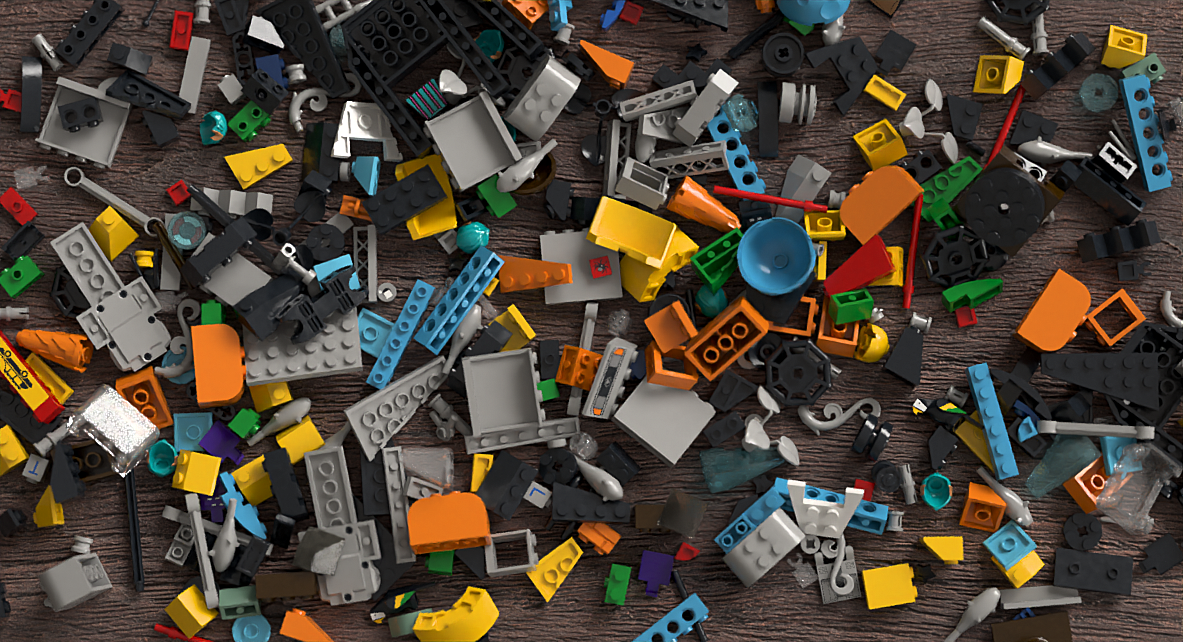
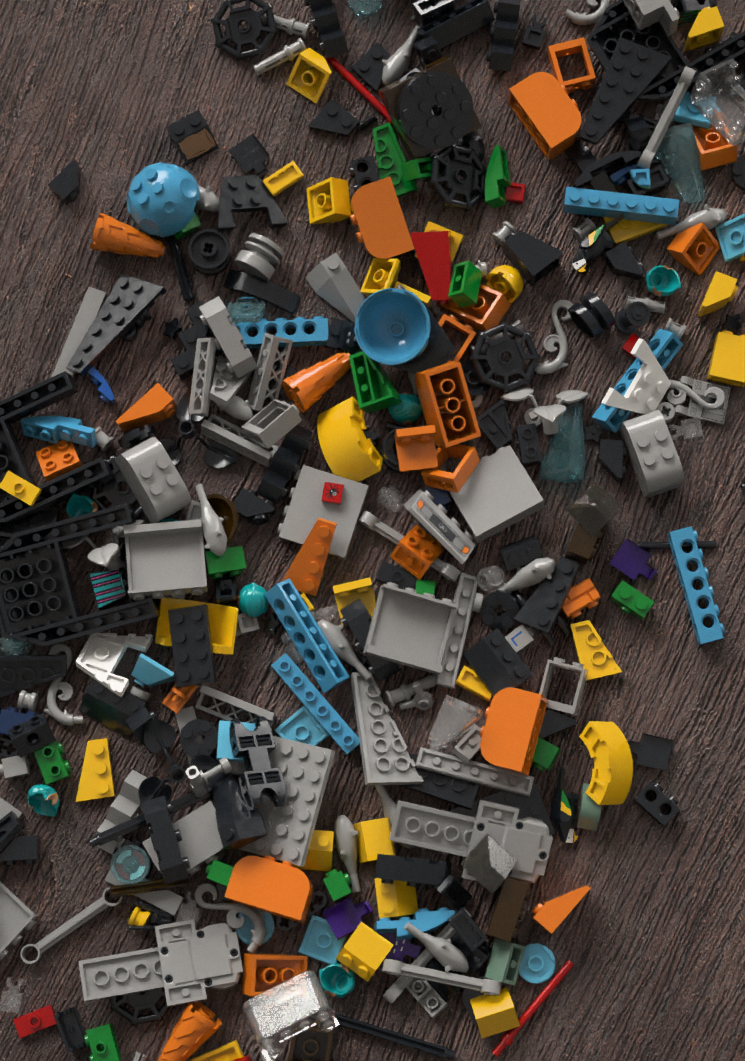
camera: 65 degrees left, 5 degrees down
(112, 233) = (101, 938): yellow slope -> none
(179, 193) = (90, 859): red tile -> none
(386, 292) = (270, 701): light grey tile -> none
(631, 12) = (110, 371): red tile -> none
(631, 230) = (312, 449): yellow panel -> none
(686, 552) = (626, 526): red tile -> none
(749, 520) = (622, 453): dark azure slope -> none
(807, 206) = (356, 286): red bar -> none
(835, 199) = (361, 260): light grey wheel -> none
(908, 288) = (467, 230): red bar -> none
(914, 125) = (326, 160): light grey plant -> none

